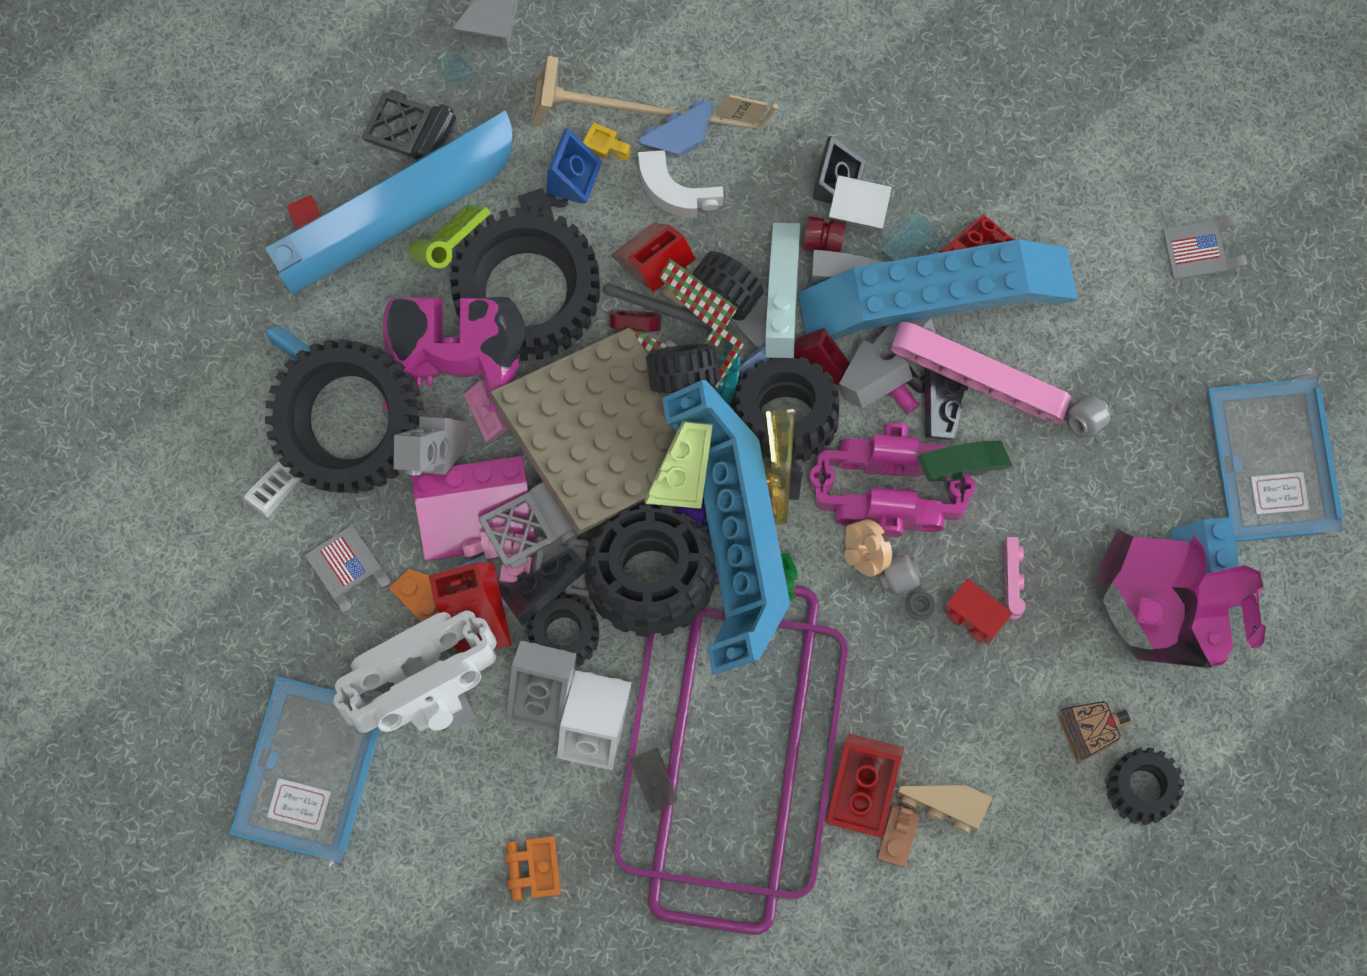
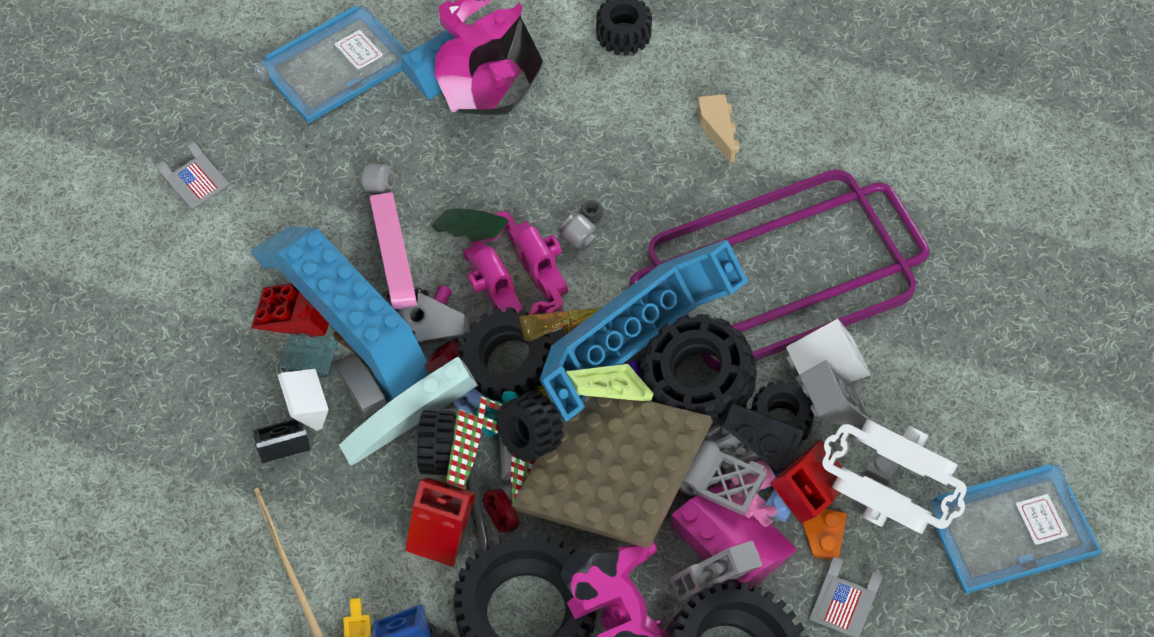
camera: 120 degrees left, 15 degrees down
(489, 422) = (651, 572): bright pink plate -> none
(543, 868) = (956, 333): orange plate -> none
(654, 780) = (842, 294): clear smoke plate -> none
(669, 194) = (371, 559): white arch -> none
(681, 132) = (313, 567): medium blue slope -> none
(824, 235) = (342, 415): dark red wheel -> none
(864, 785) = (740, 176): red slope -> none
(867, 548) = (585, 247): light nougat plate -> none
(898, 836) = (761, 144): nougat plate -> none
(942, 405) = (430, 270): black wing -> none
(977, 612) = (573, 171): red brick -> none
(1013, 579) = (532, 165): bright pink plate -> none
(1092, 728) = (606, 72): torso -> none

